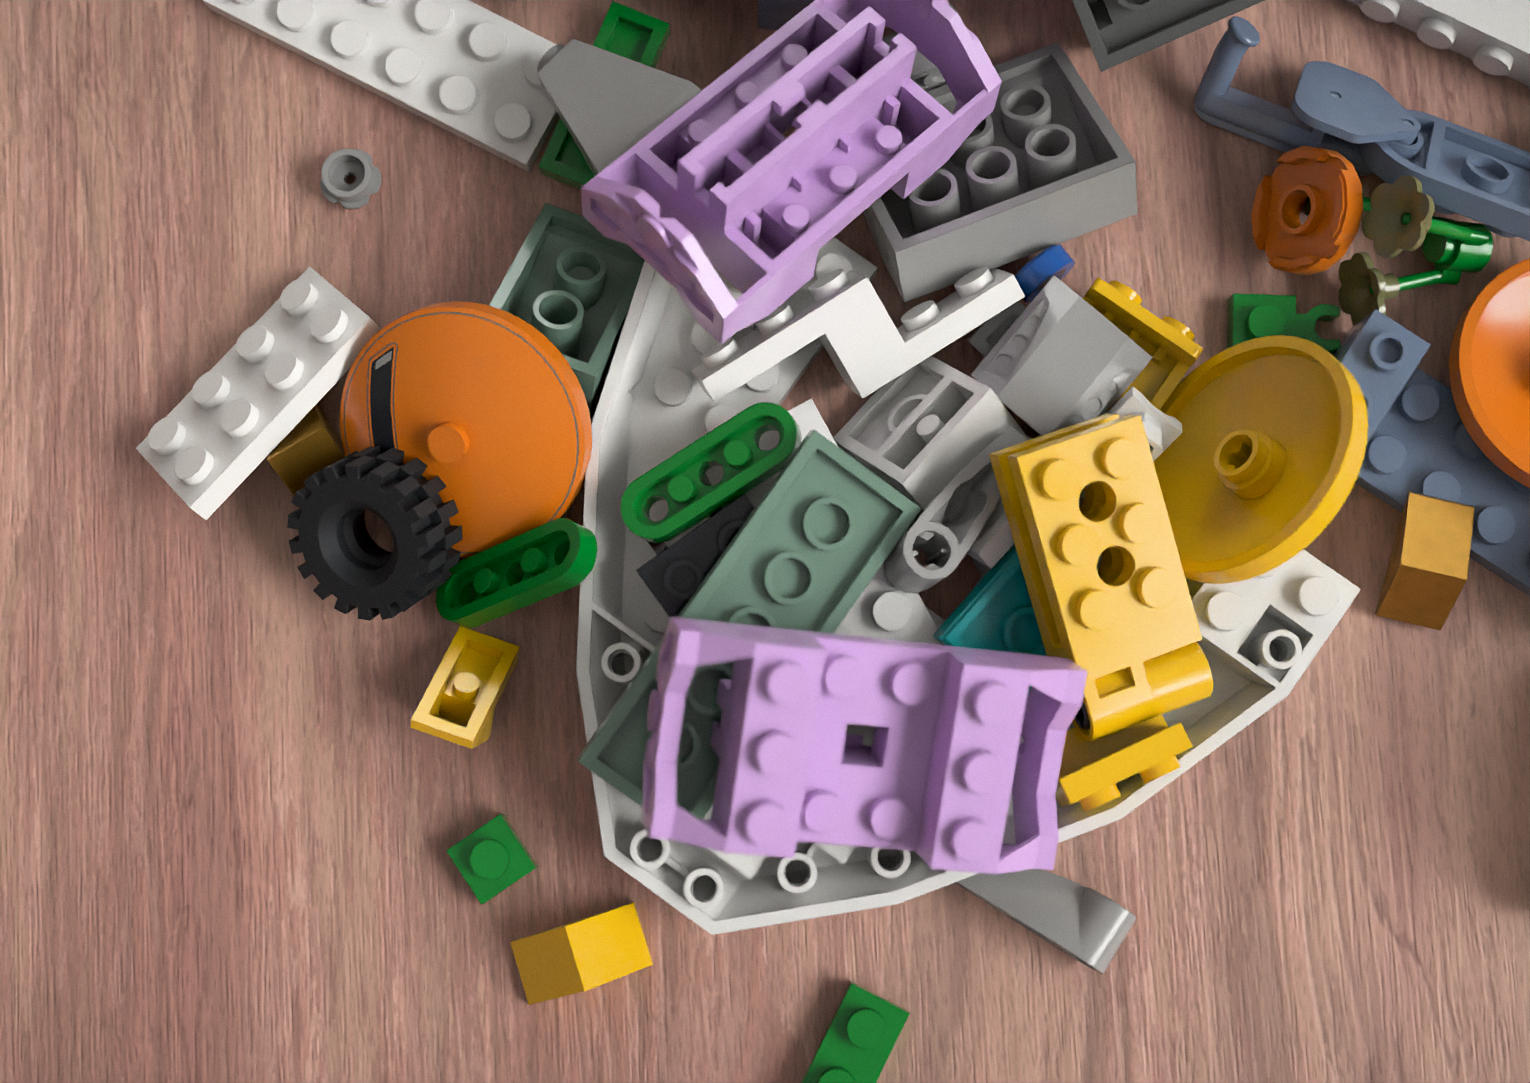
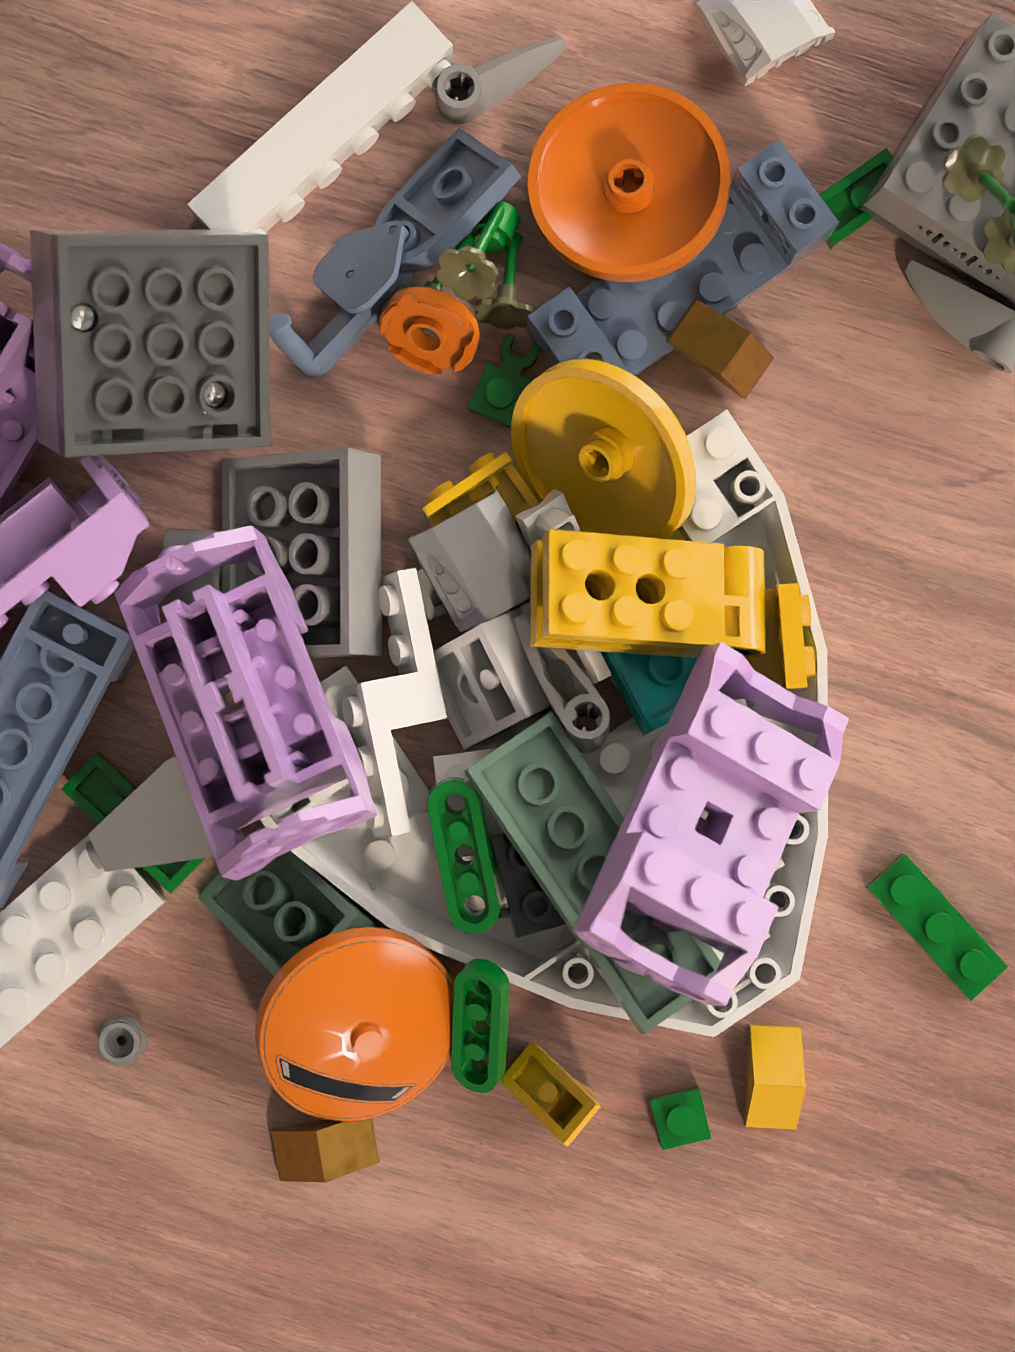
camera: 75 degrees left, 5 degrees up
(257, 392) = (266, 1170): white plate -> none
(344, 553) = (420, 1146): black tyre -> none
(1041, 269) = (397, 544): blue tile -> none
(1058, 911) = (879, 714): light grey piece -> none

